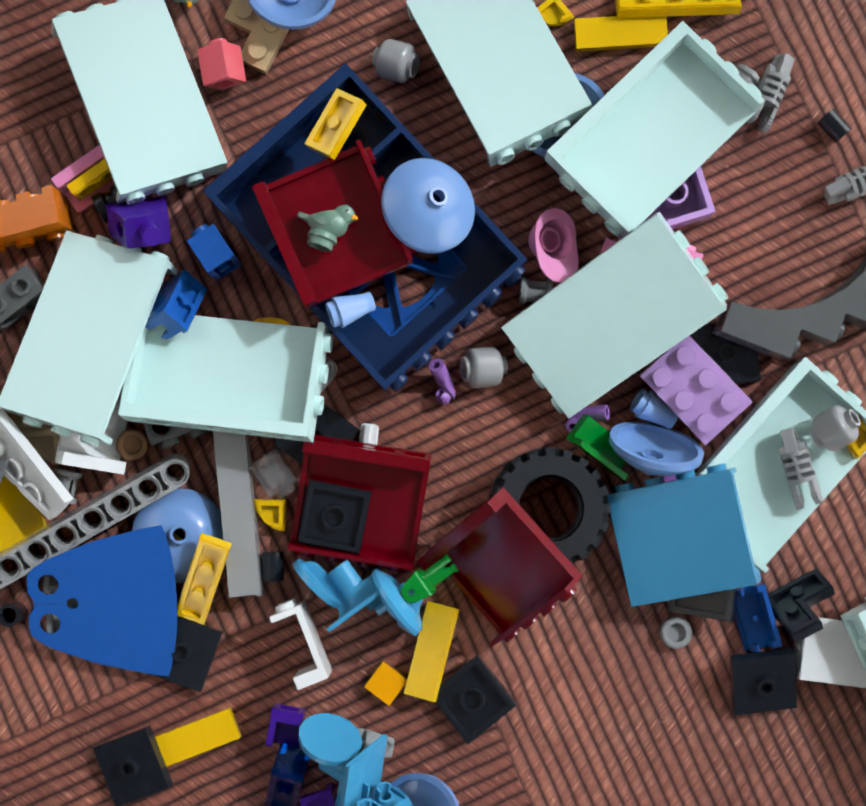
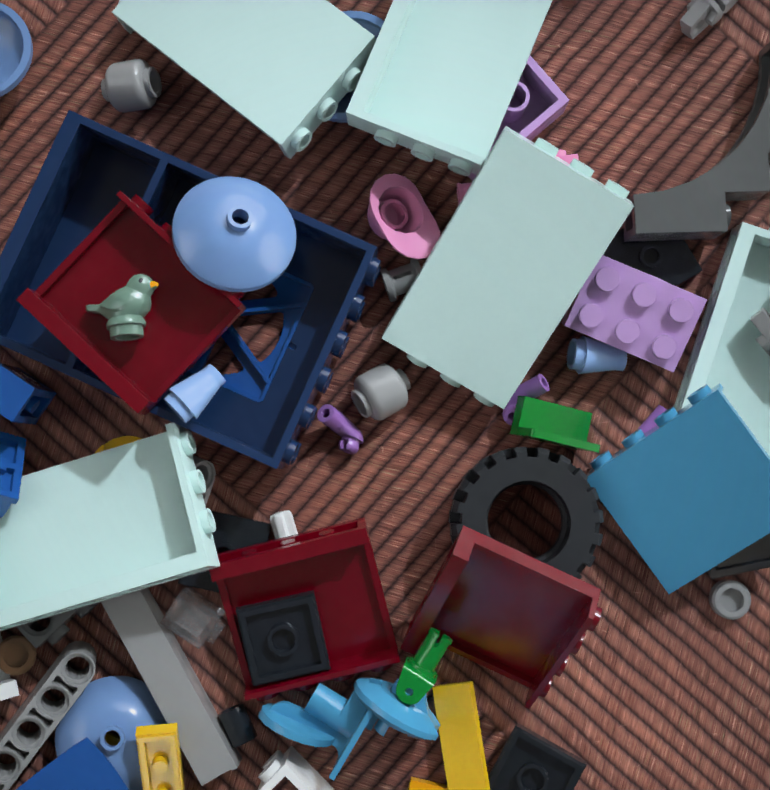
camera: 15 degrees left, 0 degrees up
(272, 512) = (211, 662): yellow tile -> none
(335, 124) = (85, 185): yellow plate -> none
(655, 448) = (618, 401): medium blue dish -> none

